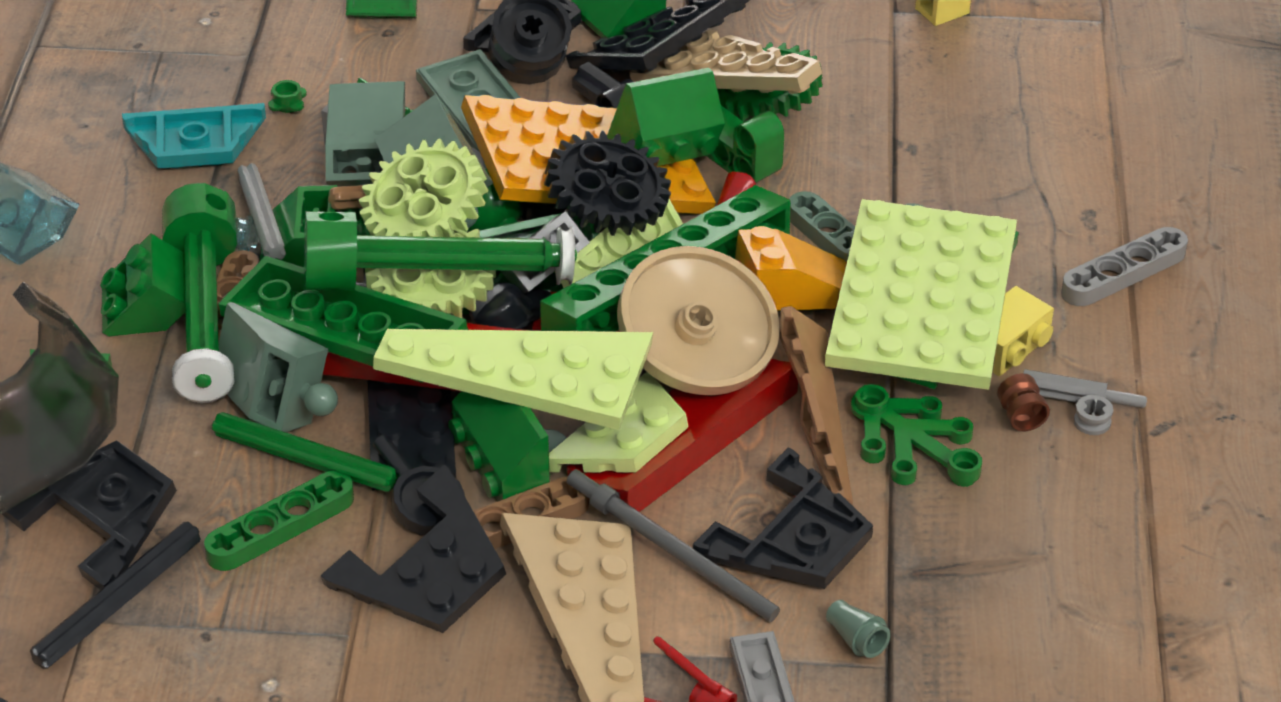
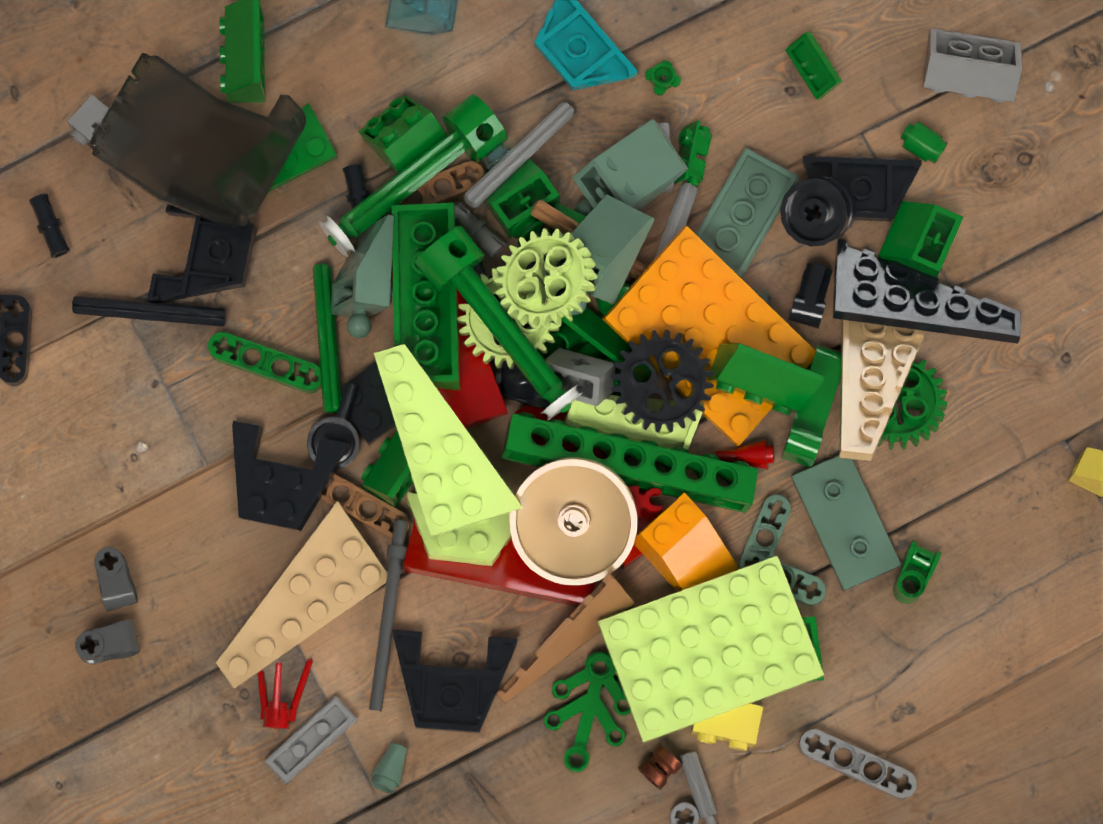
camera: 55 degrees right, 35 degrees up
(157, 351) = (355, 184): none -> black pin
(857, 170) = (845, 522): none -> sand green plate
(951, 143) = (916, 567): none -> green piece

